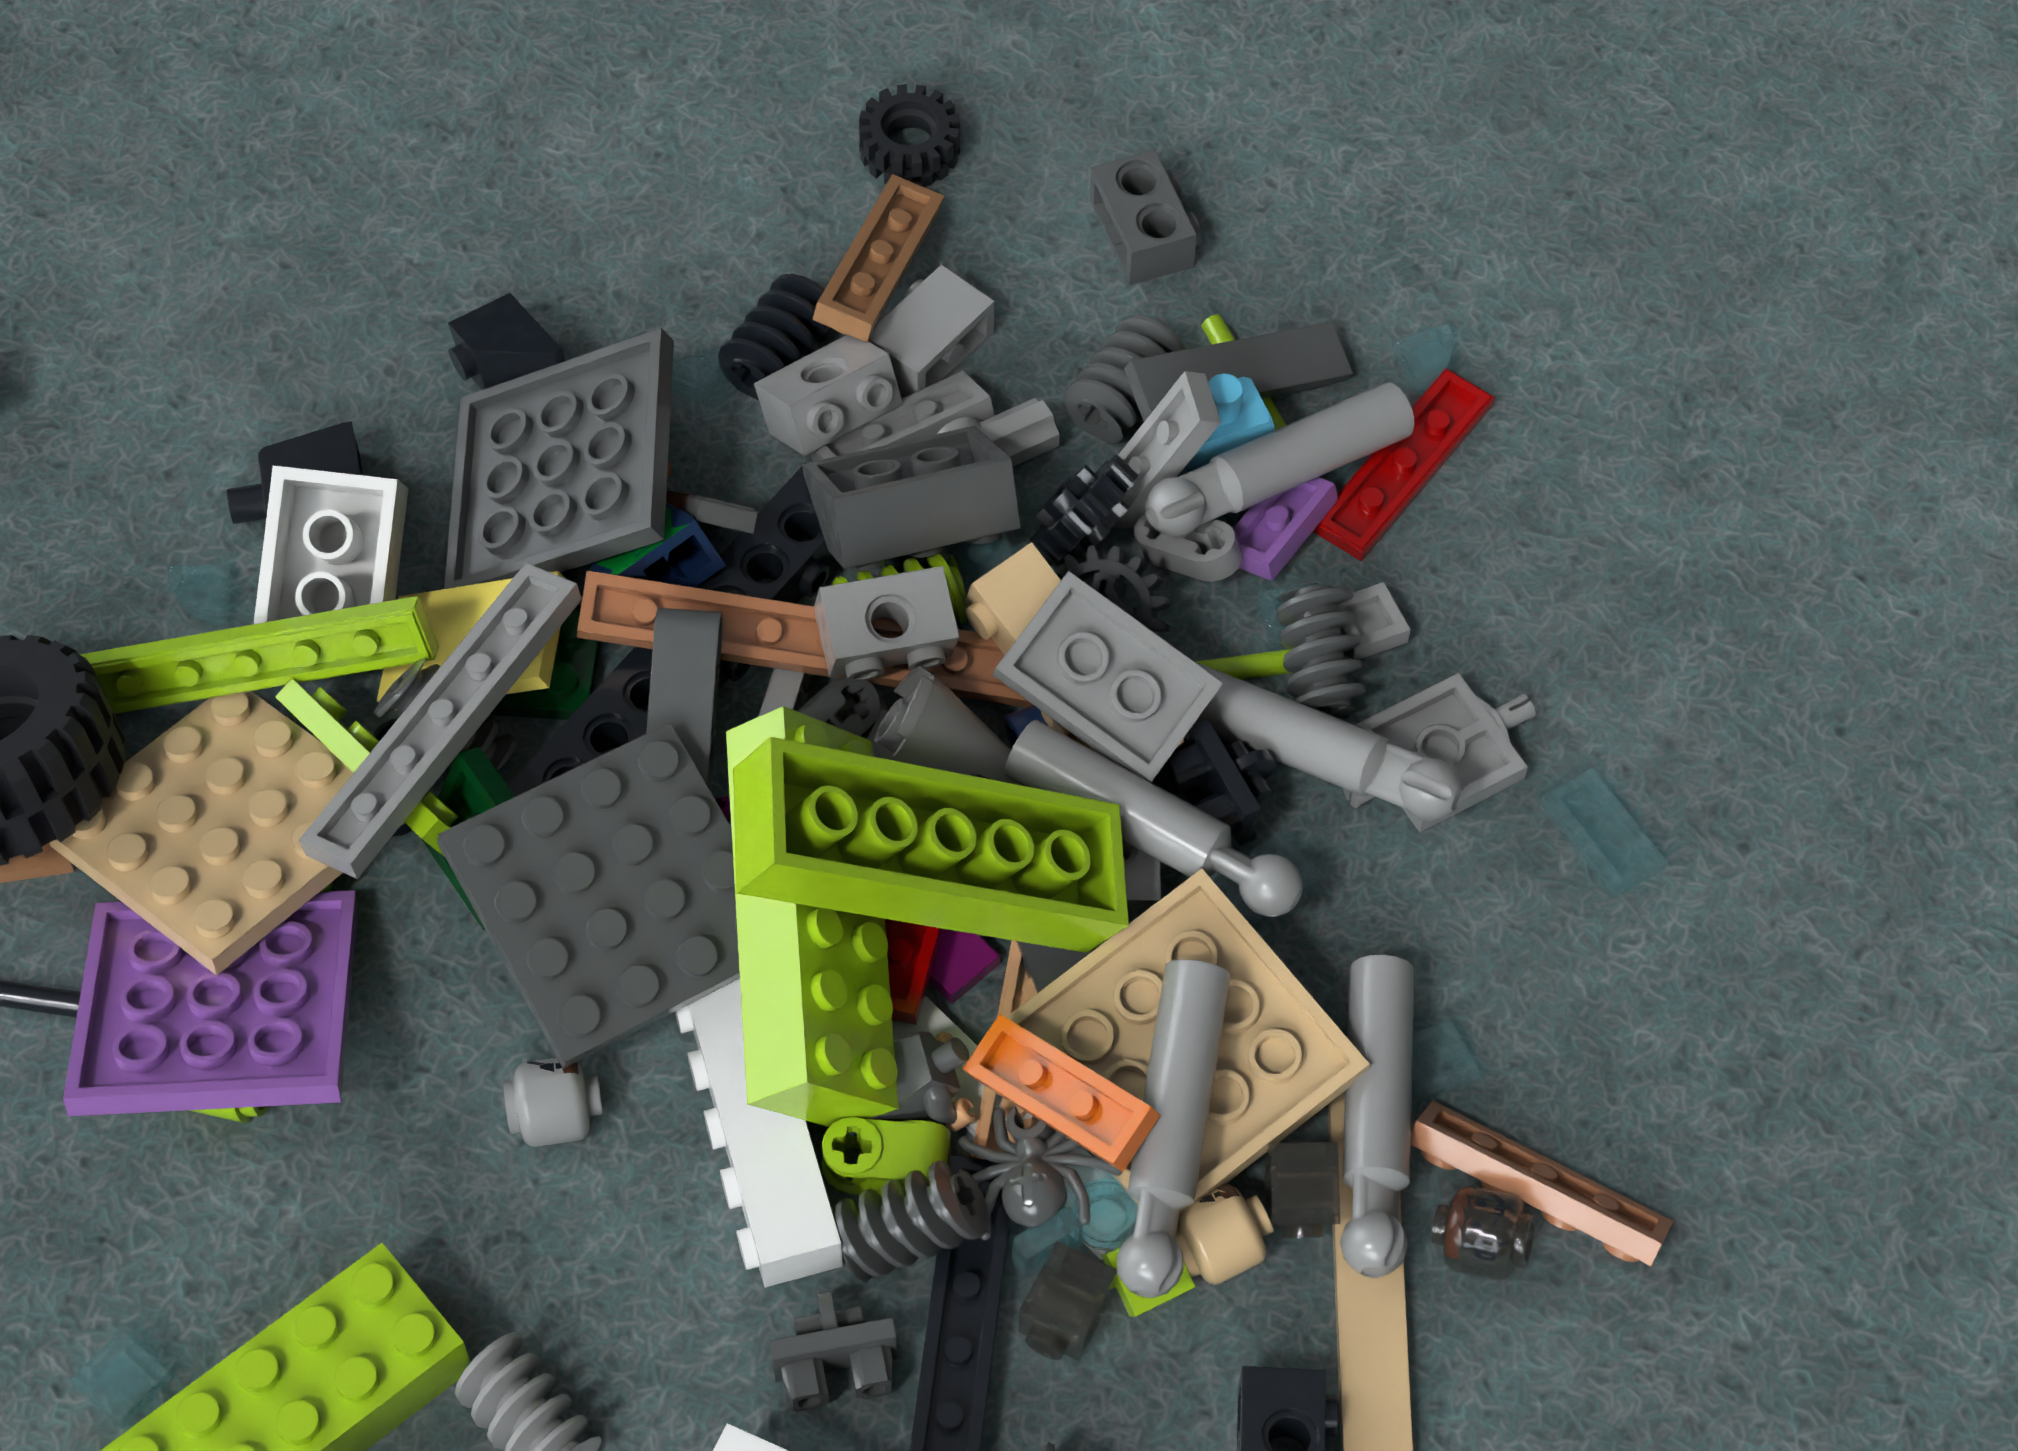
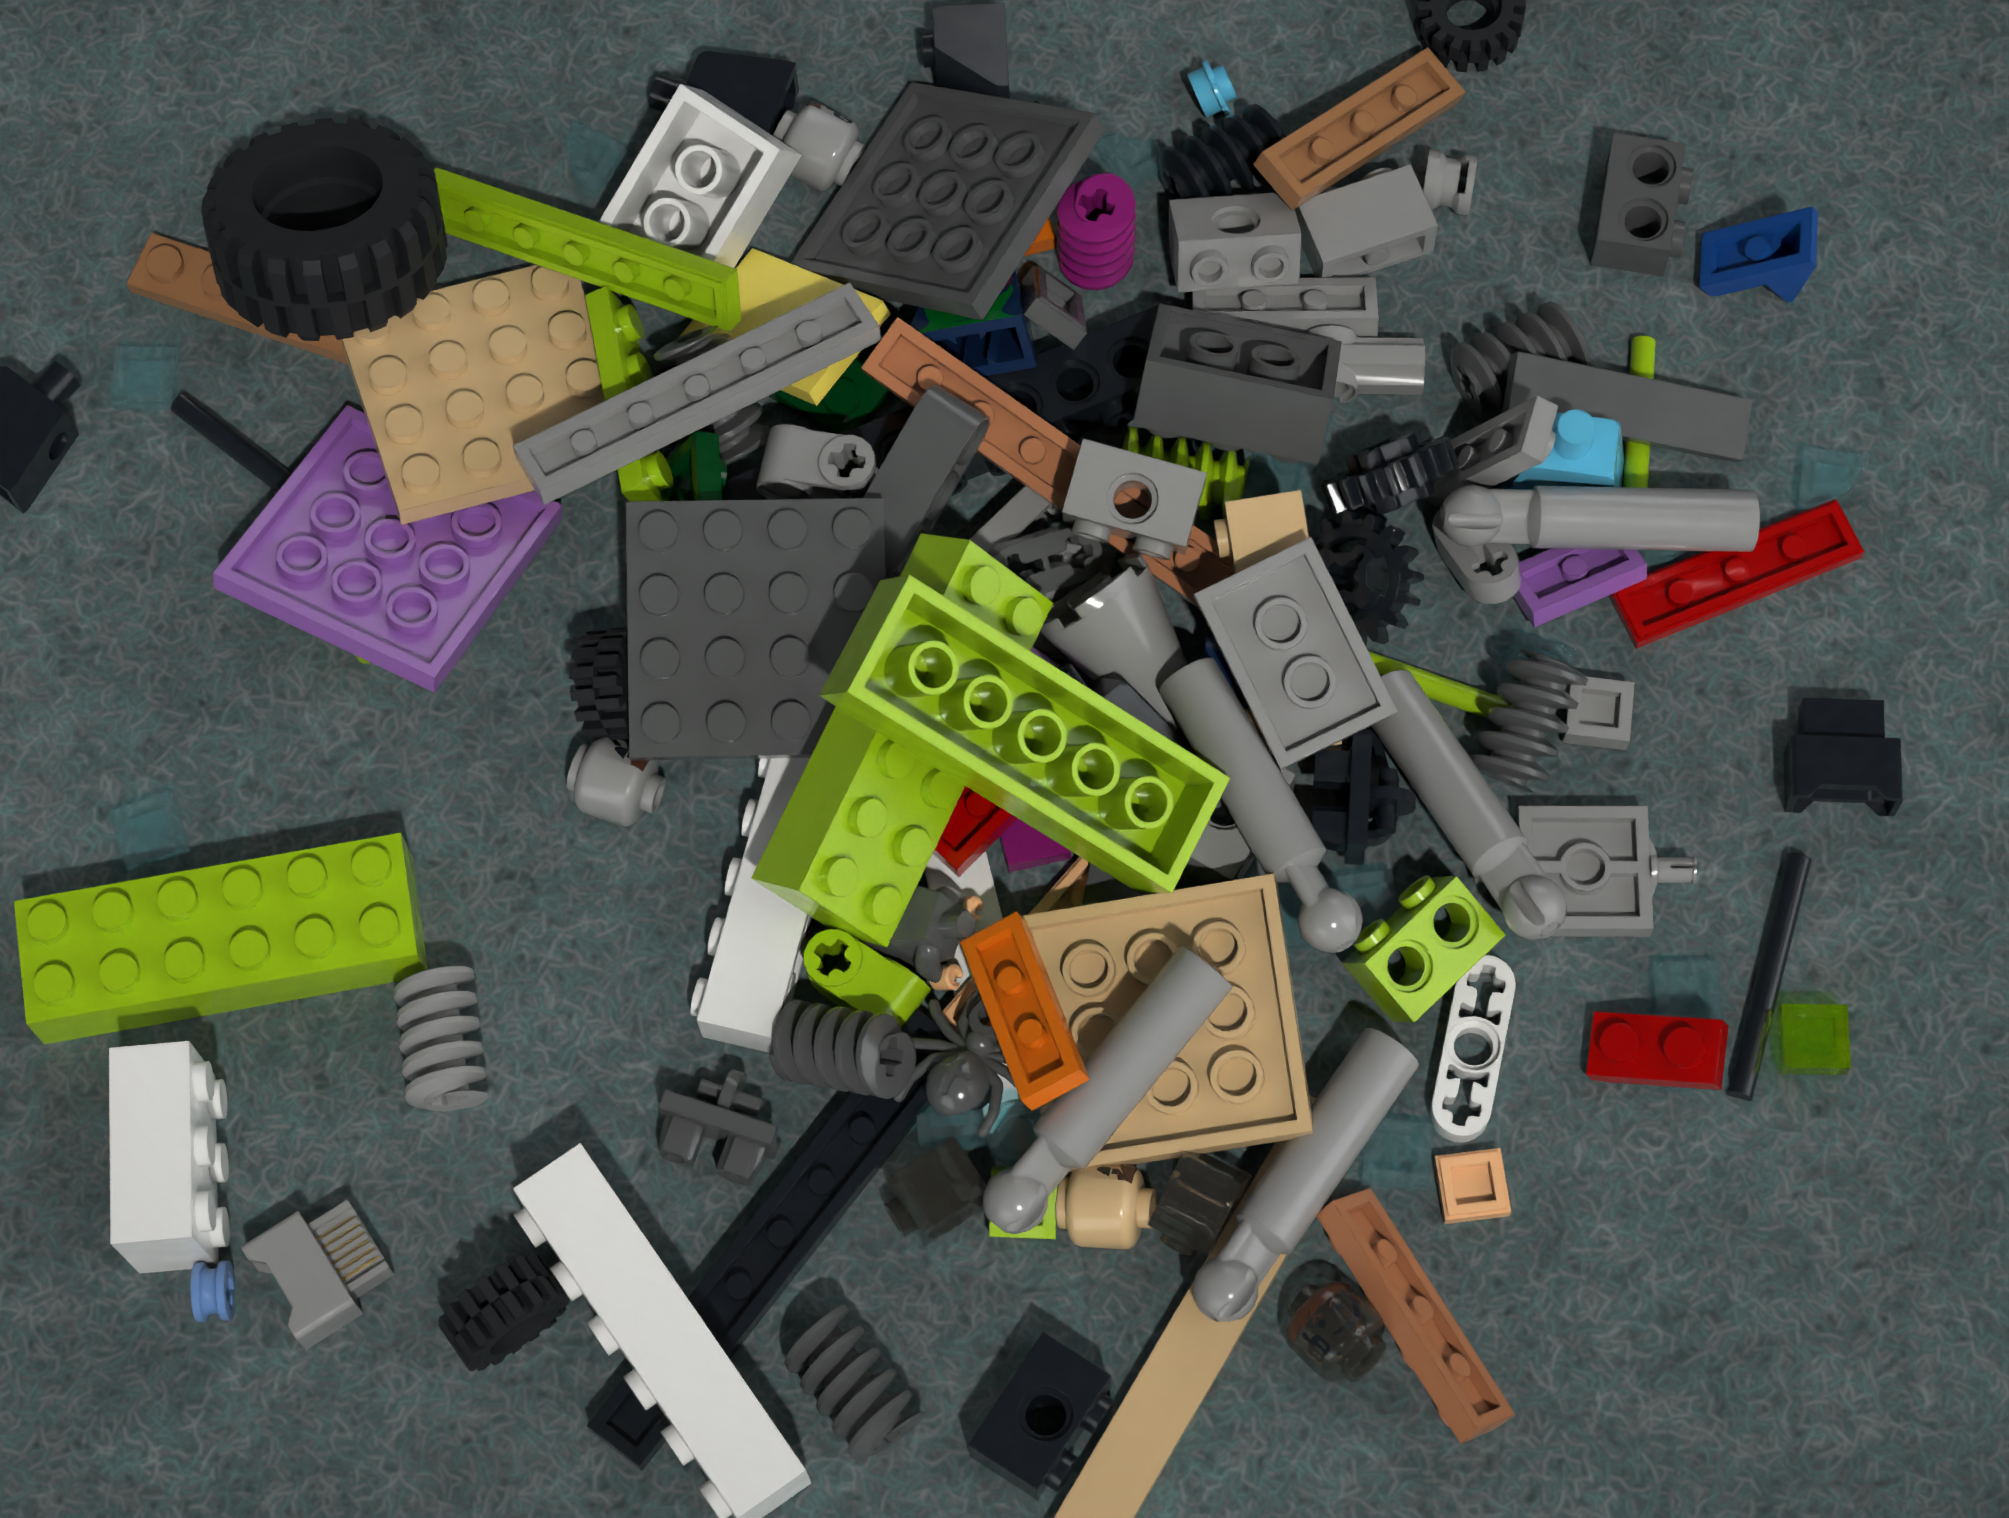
camera: 35 degrees right, 10 degrees up
(424, 474) = (826, 144): none -> light grey head
(500, 1014) = (602, 683): none -> black tyre
(582, 729) = (814, 465): none -> light grey piece
(708, 435) = (1096, 231): none -> magenta piece
(729, 286) = (1212, 88): none -> medium azure plate
(979, 266) = (1443, 180): none -> light grey wheel
(1274, 201) = (1761, 252): none -> blue slope
(1362, 879) = (1430, 962): none -> lime brick
(1441, 987) = (1446, 1089): none -> white beam
(1514, 1054) = (1472, 1186): none -> light nougat tile
(1585, 560) = (1843, 757): none -> black piece
(1594, 861) = (1657, 1050): none -> red plate
(1639, 761) = (1769, 976): none -> black bar
(1709, 789) = (1814, 1039): none -> clear neon green plate

